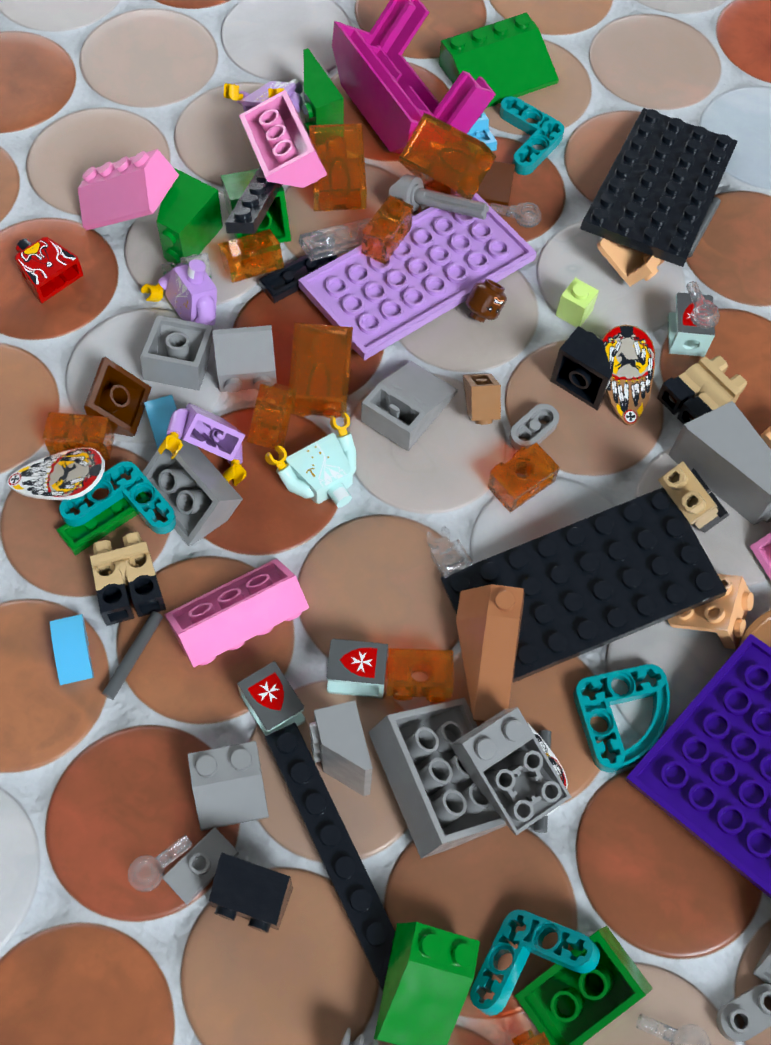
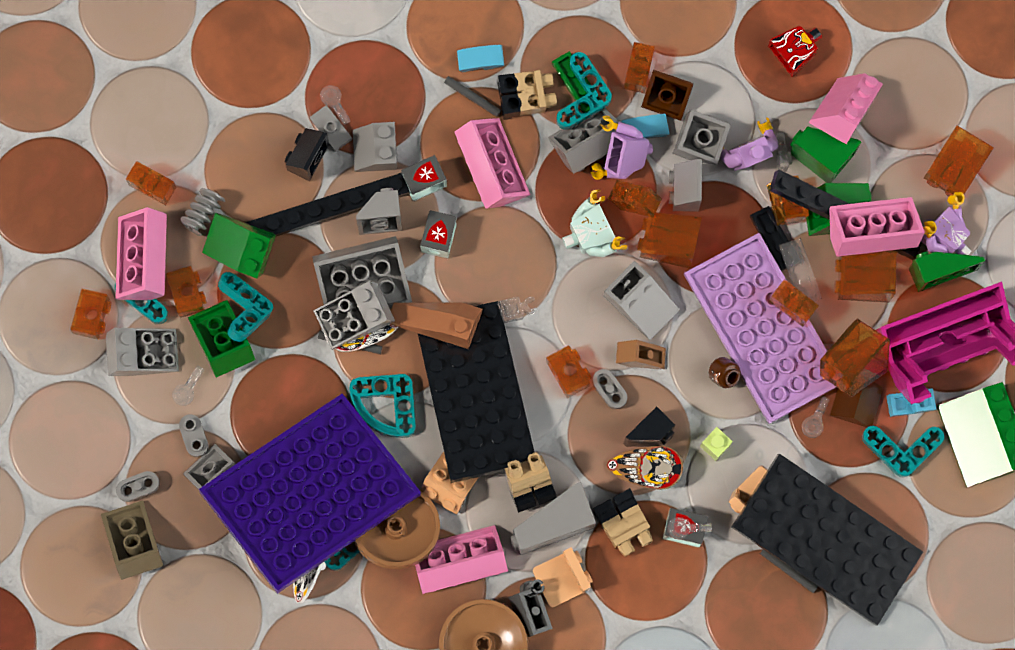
camera: 100 degrees right, 15 degrees up
(60, 475) = (607, 53): shield -> none
(184, 96) = (958, 162): none -> clear orange slope
(413, 192) = (833, 329): light grey piece -> none
(437, 666) = (431, 287): clear orange brick -> none

